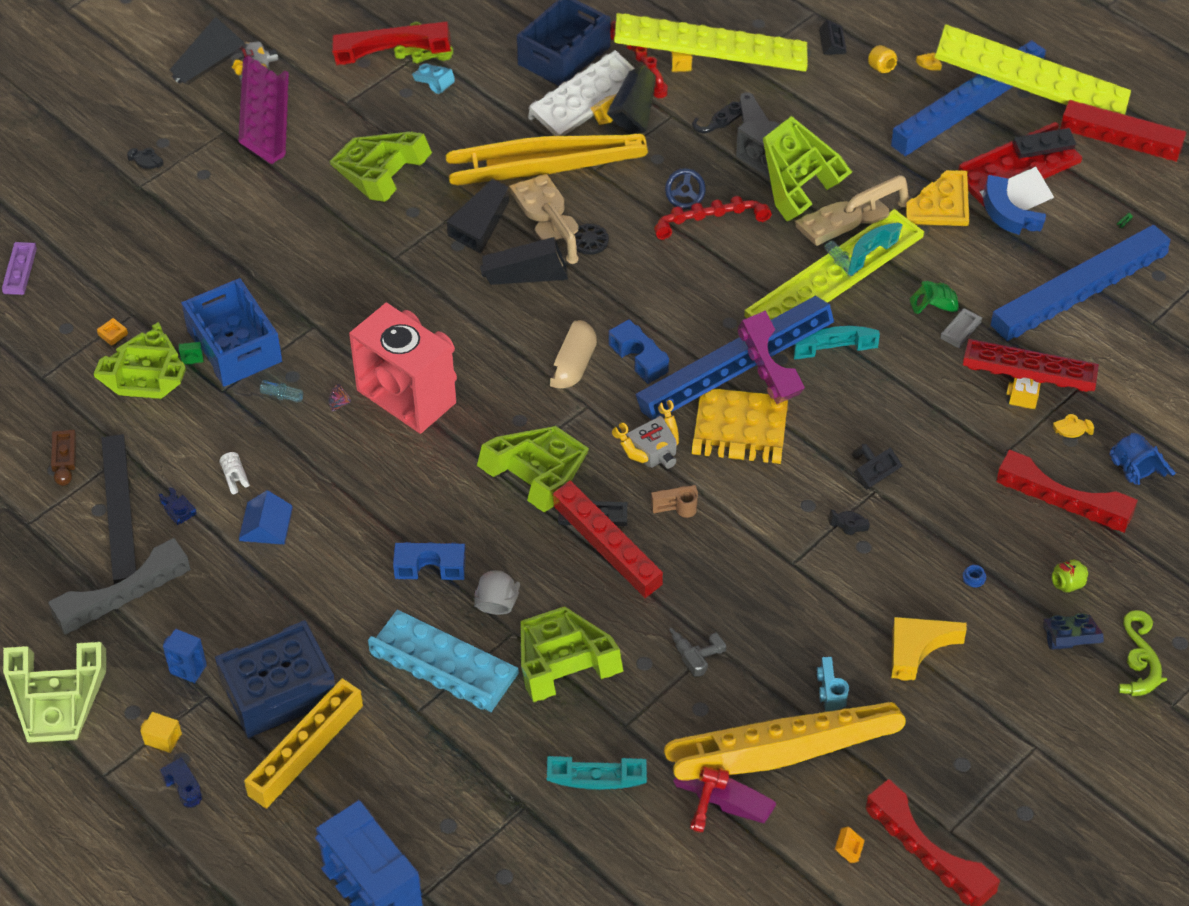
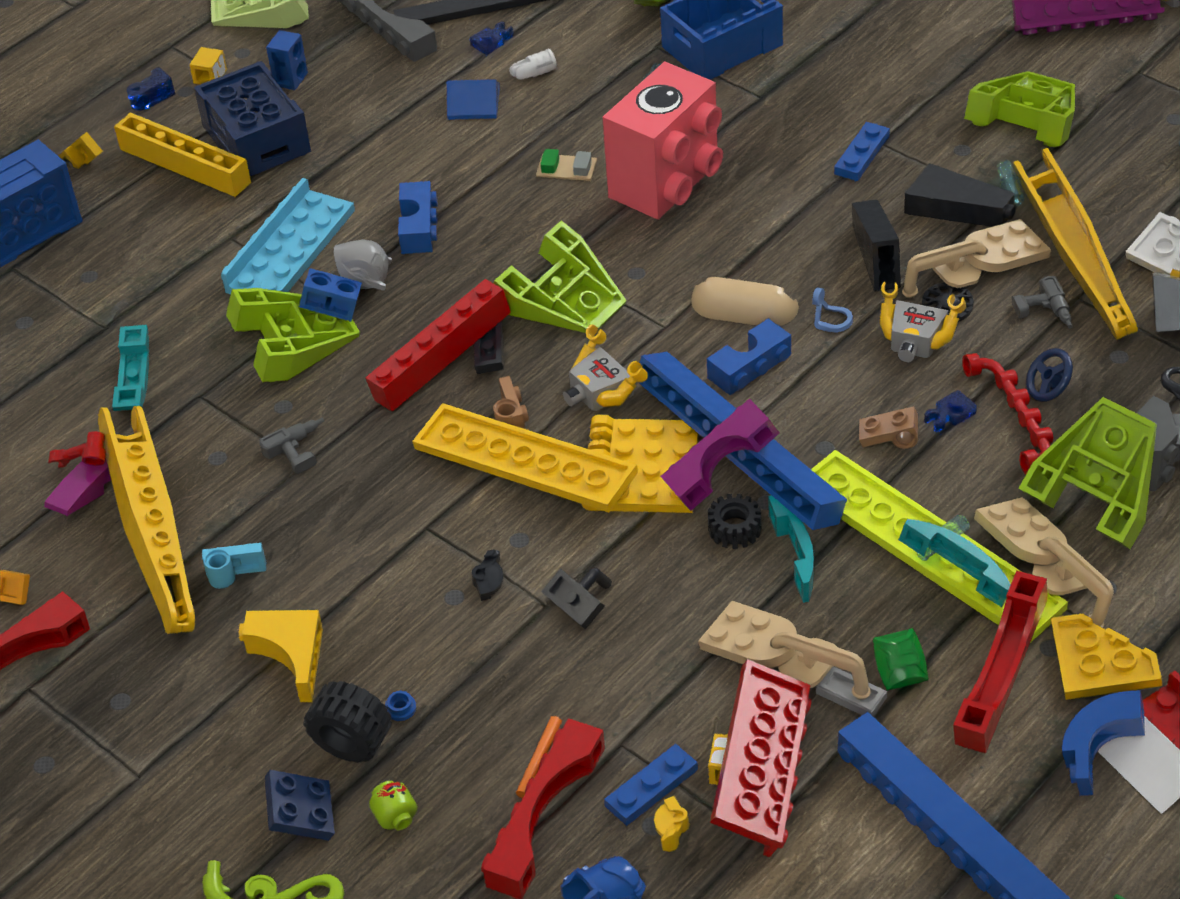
camera: 90 degrees right, 5 degrees down
(268, 837) = (81, 151): none -> yellow slope
(375, 459) = (566, 167): none -> piece
(404, 268) = (861, 151): none -> blue plate
(464, 185) = (1010, 181): none -> clear light blue axle
(529, 617) = (330, 294): none -> blue brick
(589, 300) = (818, 300): none -> medium blue piece
(598, 181) = (1051, 297): none -> dark grey piece
(623, 252) = (916, 327): none -> torso
(703, 247) = (952, 409): none -> clear blue plate
(723, 280) = (894, 426): none -> medium nougat plate
(736, 490) = (526, 457): none -> yellow plate
(812, 365) = (734, 533): none -> black tyre
(927, 360) = (773, 642): none -> tan plate
(992, 260) = (986, 702): none -> red arch
(1008, 593) = (347, 721): none -> black tyre
(1017, 497) = (542, 747): none -> orange bar
(1040, 437) = (651, 784): none -> blue plate

